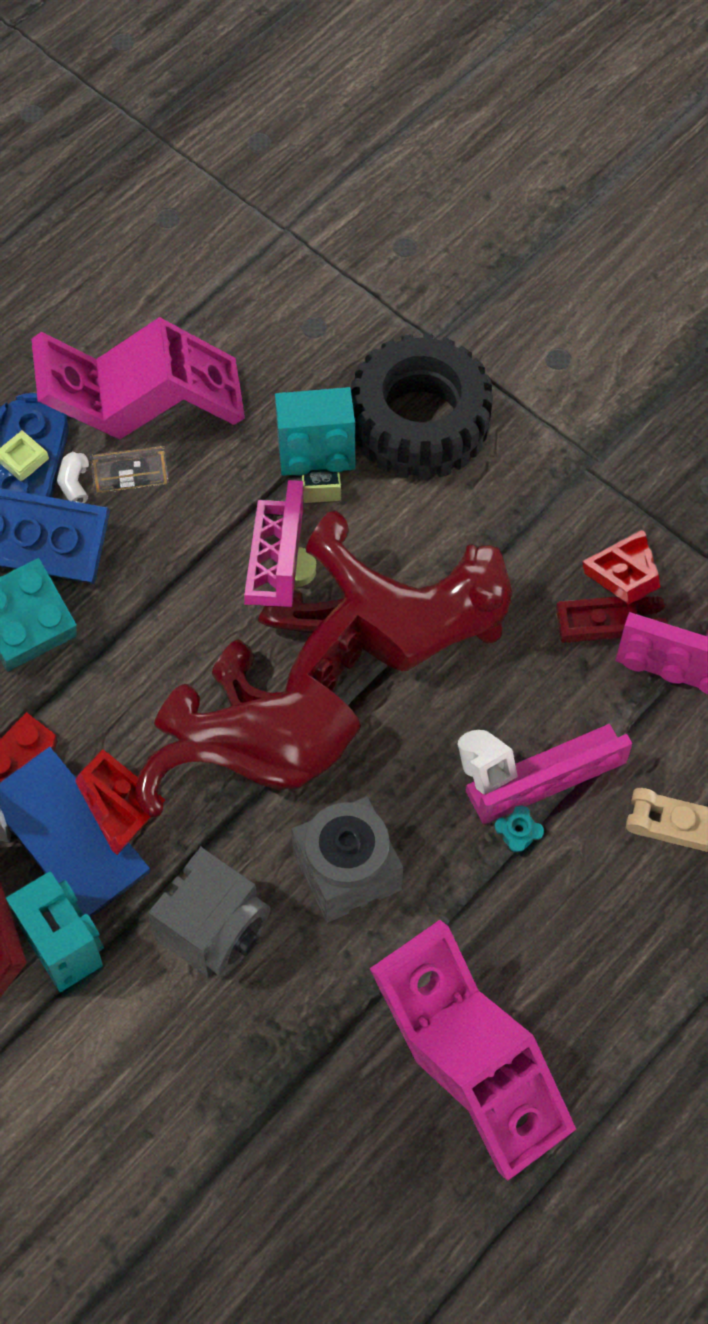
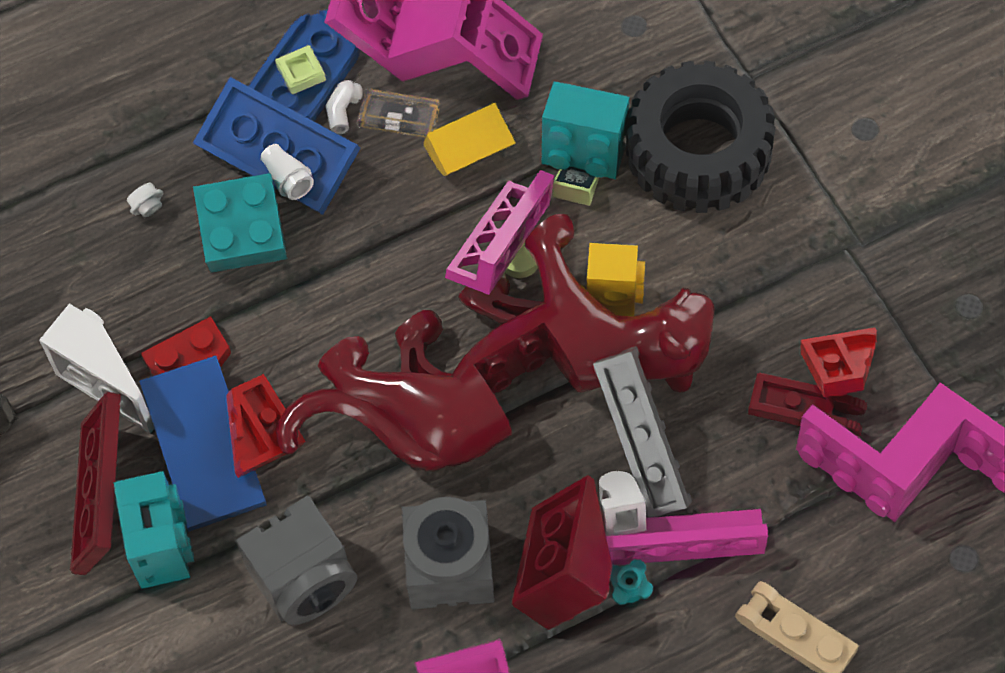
camera: 25 degrees right, 0 degrees up
(56, 555) = (288, 174): none -> white cone
(207, 474) = (468, 140): none -> yellow brick
(399, 552) = (616, 277): none -> yellow brick
(456, 824) = (564, 557): none -> dark red slope
(481, 686) = (642, 432): none -> hinge

